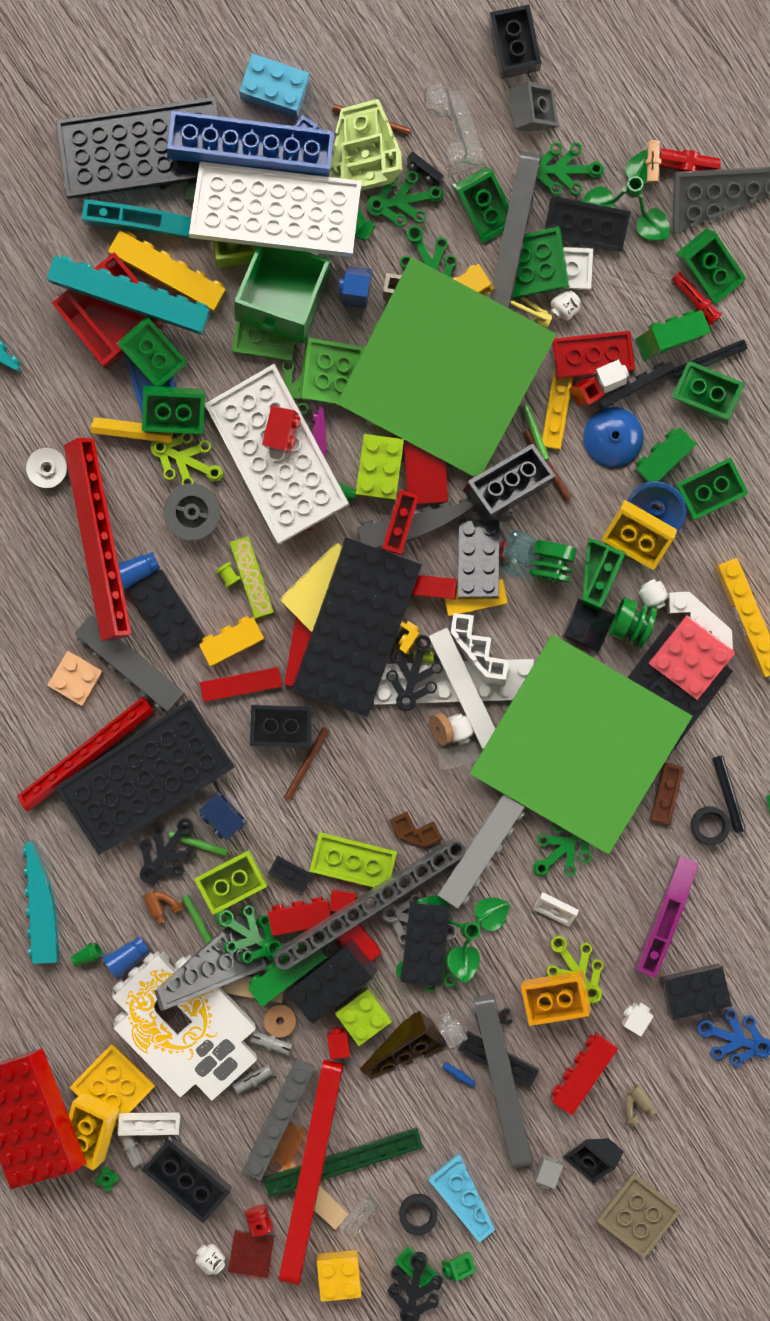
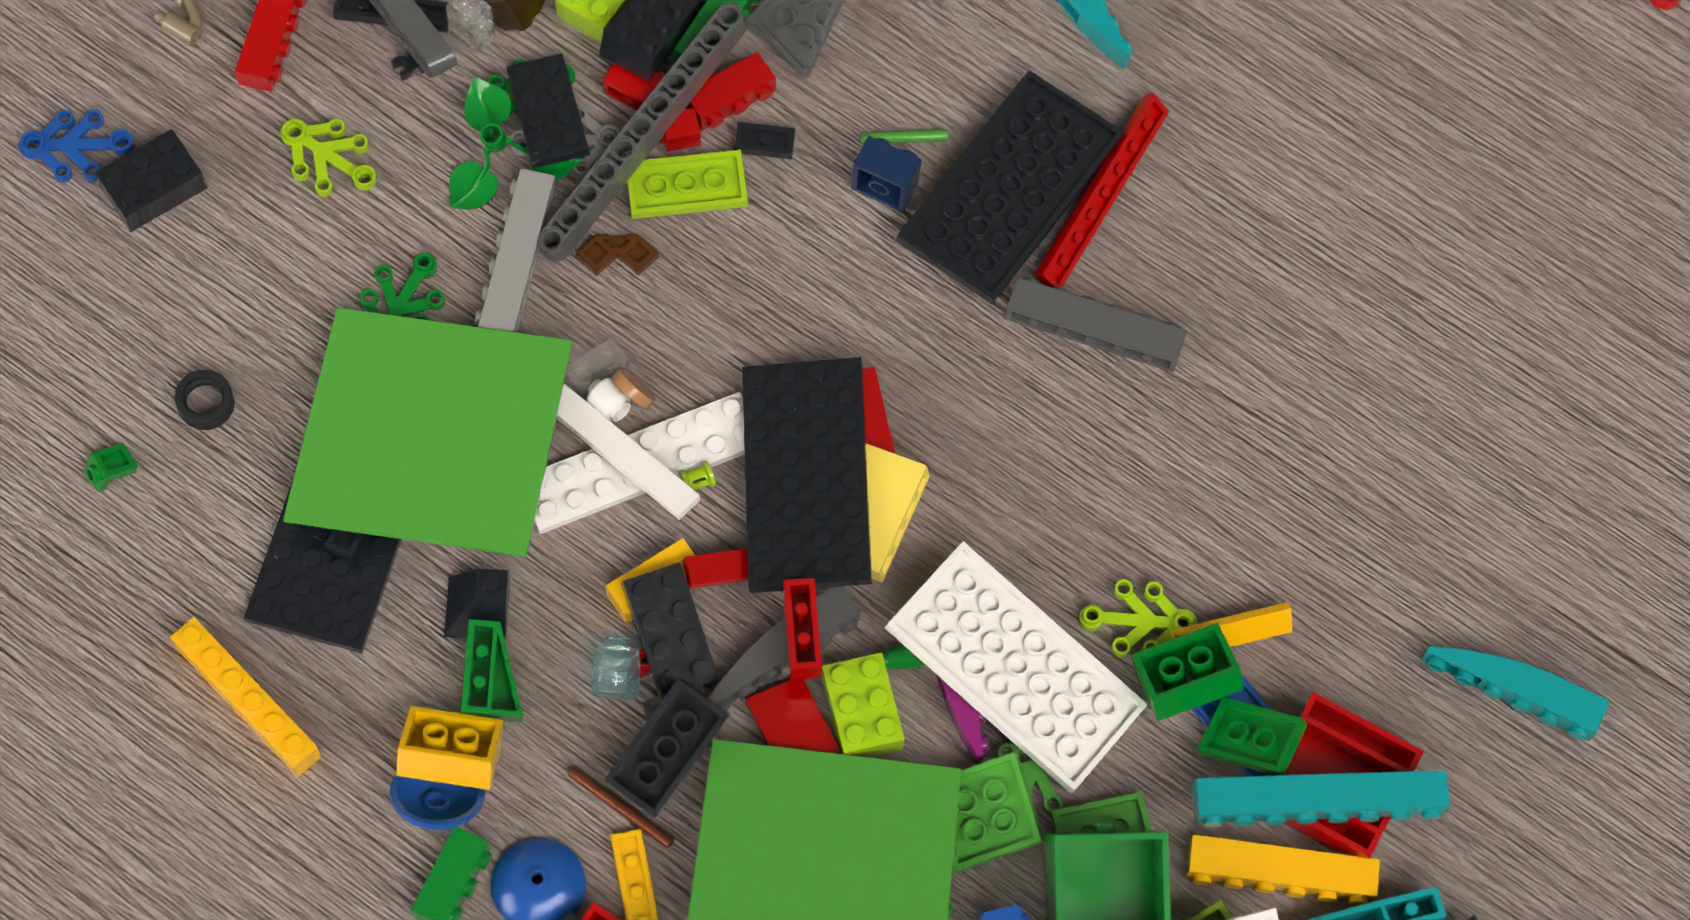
camera: 150 degrees right, 20 degrees down
(37, 463) = (1328, 523): white dish -> none
(75, 678) = (1160, 283): light nougat plate -> none
(97, 539) = (1213, 460): red brick -> none
(137, 569) = (1143, 446): blue plant -> none
(155, 908) = (933, 46): dark orange plant -> none
(164, 853) = (942, 108): black plant -> none
(166, 614) = (1075, 408): black plate -> none
(191, 511) = (1100, 544): dark grey piece -> none
(196, 918) = (864, 45): bright green bar -> none
(228, 574) = (1013, 487): lime bush -> none
(231, 640) = (970, 402): yellow brick -> none
(231, 881) = (839, 99): lime brick -> none
(241, 684) = (933, 354): red tile -> none
(251, 577) = (979, 498): tile -> none
(251, 935) = (784, 42): green plant -> none
(281, 429) = (1024, 693): red brick -> none
(281, 726) = (855, 314): black brick -> none
(306, 763) = (800, 286): copper bar -> none
(408, 641) = (728, 499): yellow bracket -> none
(413, 676) = (700, 441): black plant -> none
(477, 650) = (623, 504): white brick -> none
(535, 432) = (656, 843): bright green bar -> none
(552, 561) = (562, 665): green wheel -> none
(555, 909) = (375, 217): white plate -> none
(555, 998) = (343, 103): light orange brick -> none
(633, 622) = (414, 624): green wheel -> none
(637, 1018) = (221, 121): white brick -> none
(653, 594) = (397, 677): white head -> none
(666, 917) = (225, 257): magenta slope -> none
(667, 793) = (281, 422): copper tile -> none
(687, 603) = (315, 668): white brick -> none
(691, 657) = (311, 605): coral plate -> none
(711, 489) = (366, 854): green brick -> none
(729, 794) = (192, 452): black axle -> none

